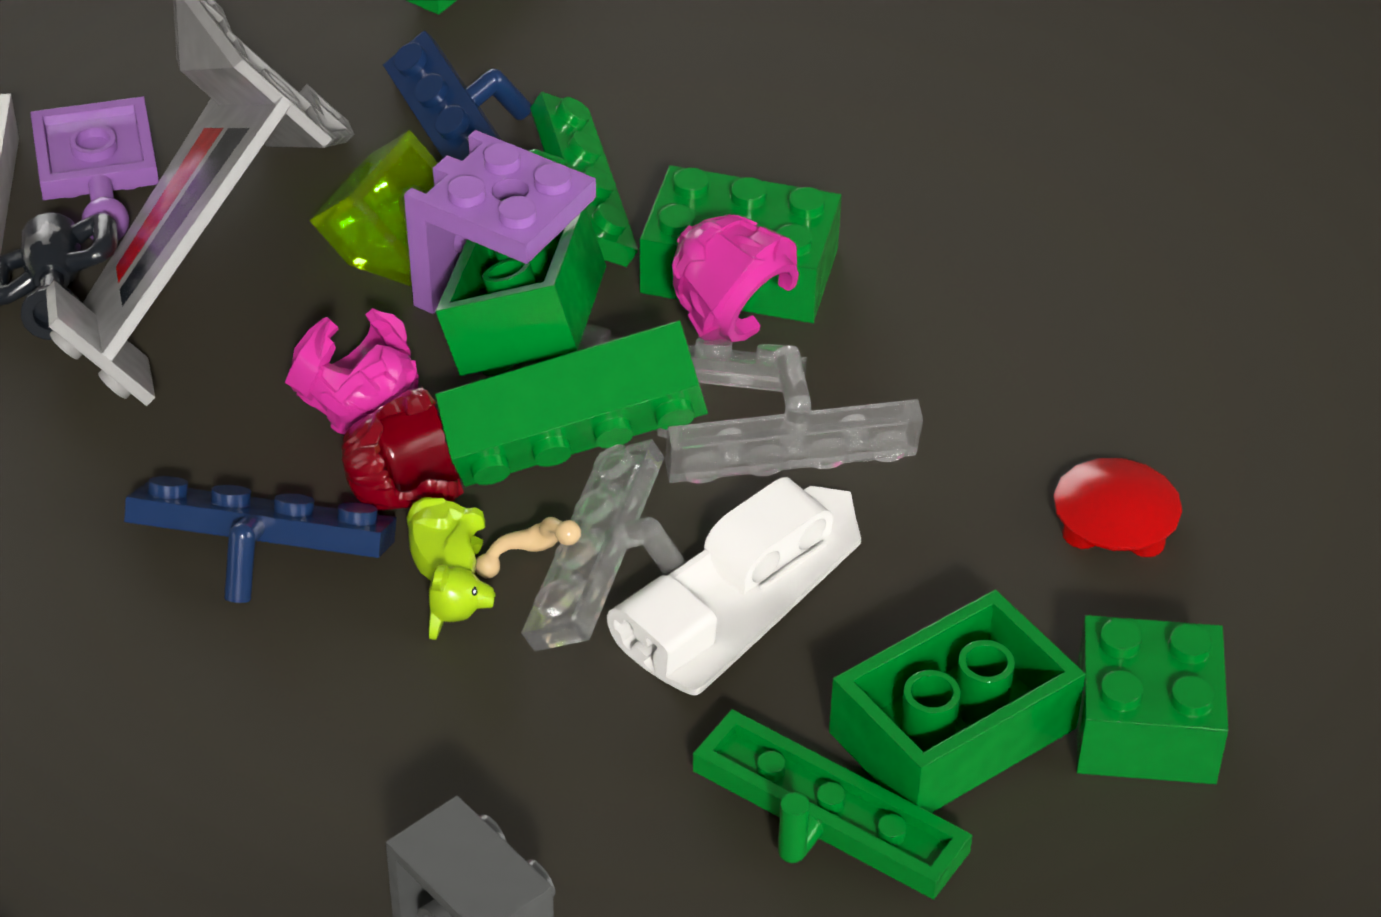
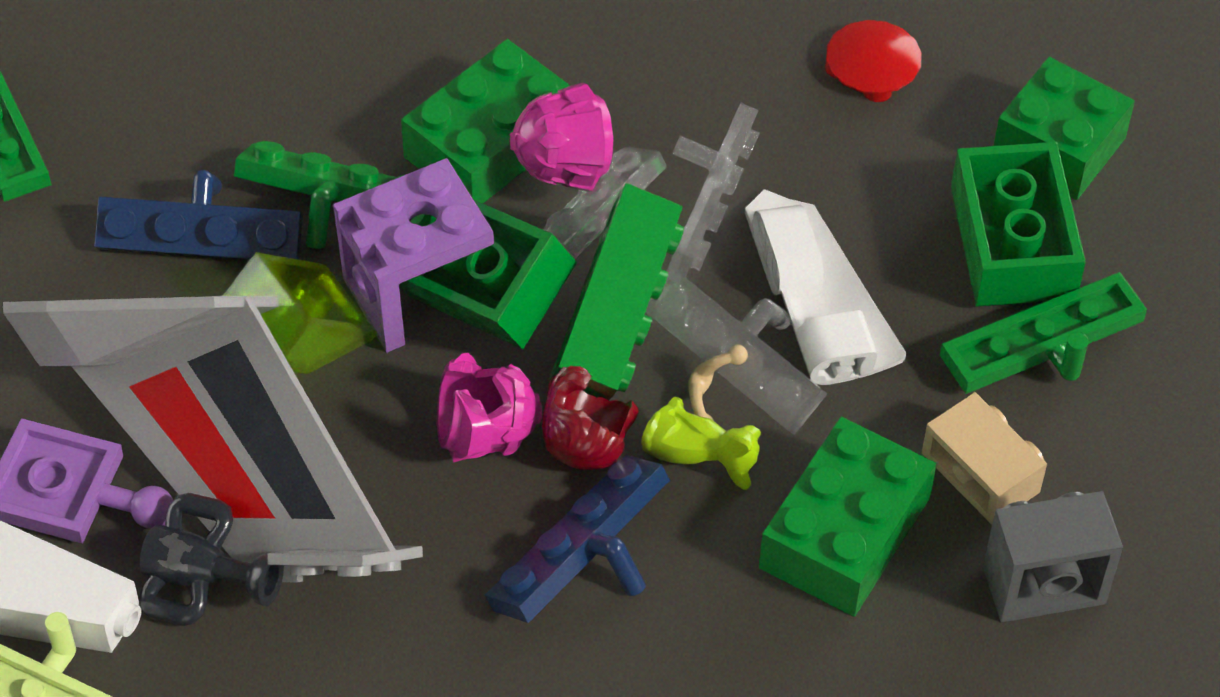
camera: 60 degrees left, 10 degrees up
(425, 718) = (847, 516): none -> green brick
(599, 811) = (984, 456): none -> tan brick

